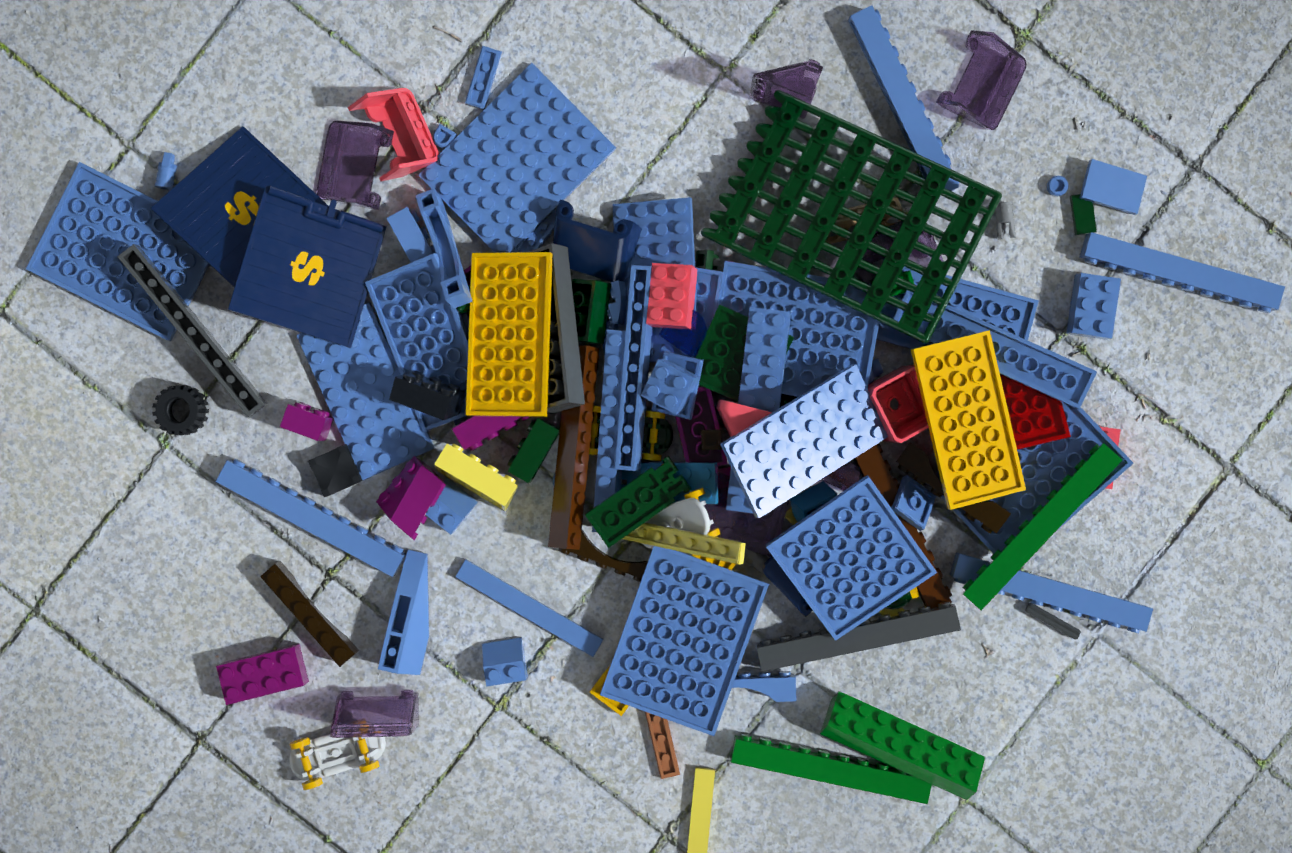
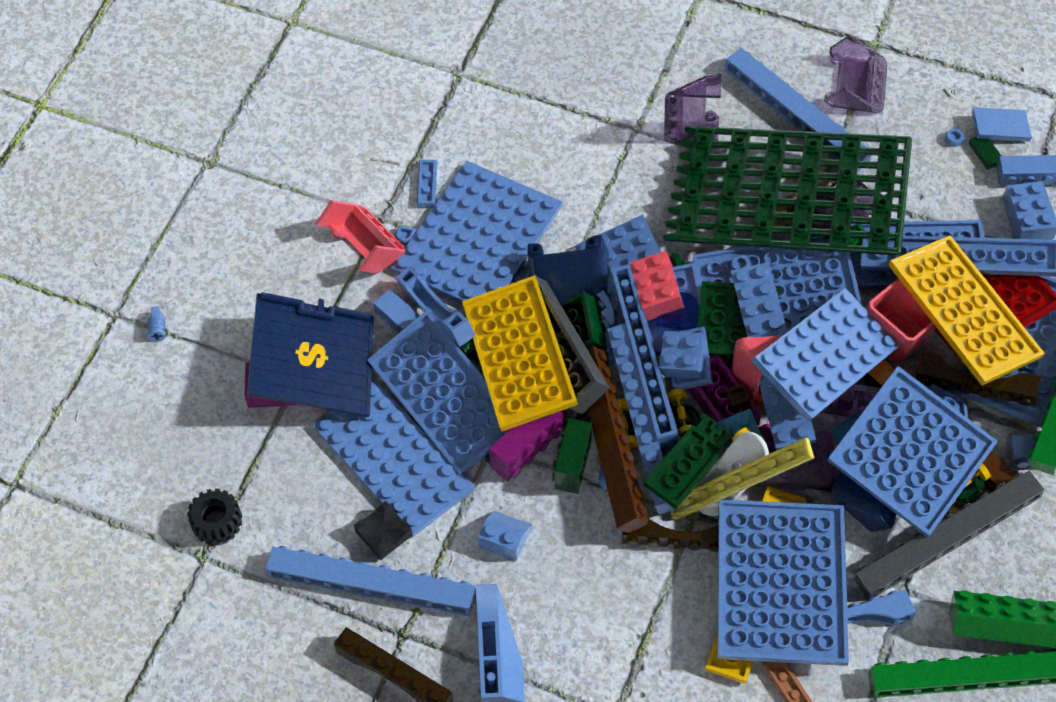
camera: 15 degrees left, 30 degrees down
(97, 224) = (130, 399): medium blue plate -> none
(192, 329) = (214, 439): dark grey brick -> none
(221, 197) = (215, 328): dark blue door -> none
(307, 422) = (344, 490): magenta brick -> none
(351, 163) = (326, 269): clear purple windscreen -> none
(411, 496) = (465, 526): magenta wedge -> none
(427, 395) = (456, 426): black brick -> none
(475, 476) = (525, 490): light yellow slope -> none
(504, 662) = (609, 665): medium blue slope -> none
(529, 608) = (616, 607): medium blue tile -> none
(767, 292) = (740, 262): none -> medium blue tile
(1005, 214) = (921, 169): light grey hinge -> none

